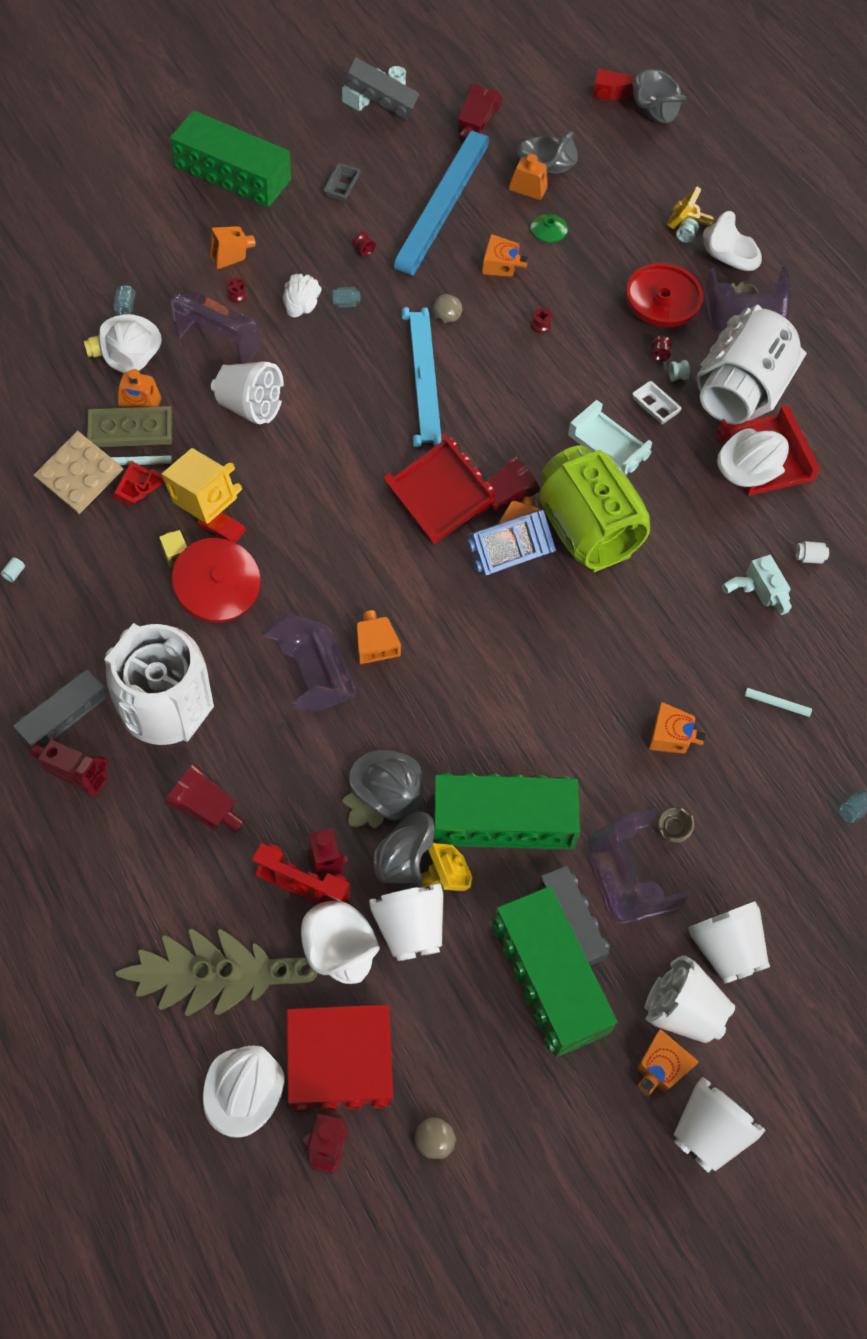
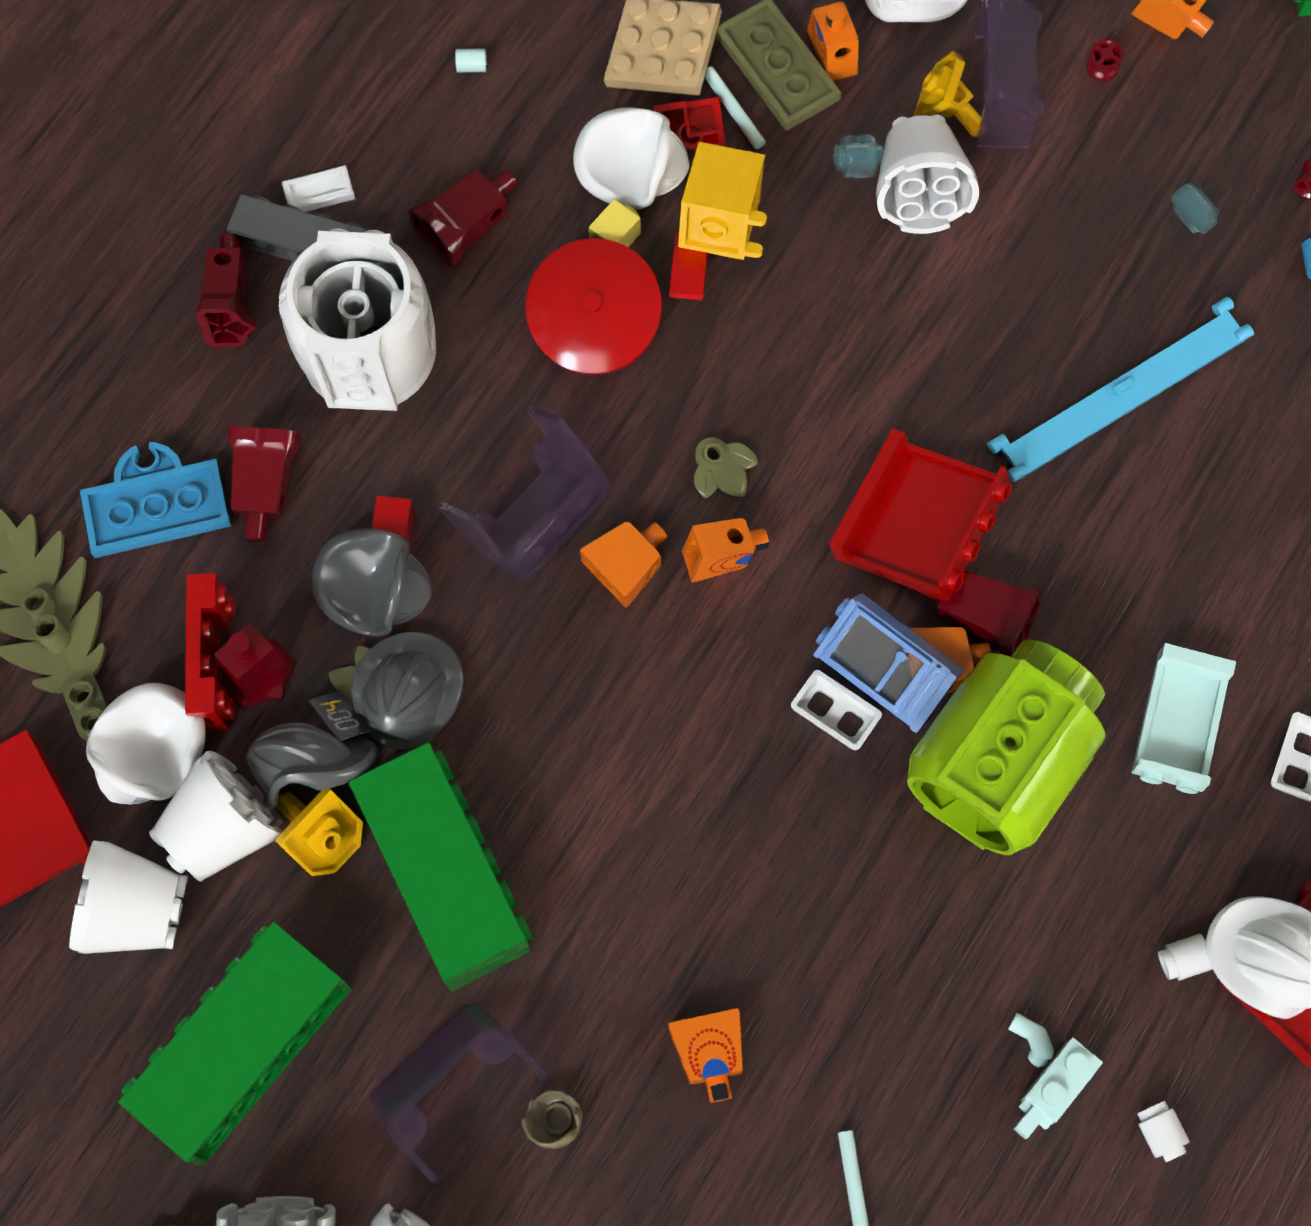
camera: 70 degrees right, 10 degrees up
(34, 688) = (319, 189): none -> white tile
(107, 617) = (462, 214): none -> dark red piece
(137, 517) = (629, 157): none -> white piece
(179, 872) = (154, 502): none -> dark azure plate
(205, 360) = (947, 95): none -> yellow piece
(214, 417) = (858, 156): none -> clear light blue head
(279, 745) = (394, 516): none -> red brick
(300, 294) = (1155, 146): white hair -> none
(309, 771) = (369, 581): none -> dark grey piece
(351, 568) = (726, 471): none -> olive plate
(383, 824) = (339, 715): none -> black sticker
(399, 580) = (721, 547): none -> orange torso
(433, 997) = (125, 903): none -> white cone
(447, 308) = (1276, 360): dark tan hair -> none
(515, 578) = (844, 702): none -> white piece
(575, 909) = (337, 1039): dark grey brick -> none
(731, 499) = (1185, 958): none -> white brick

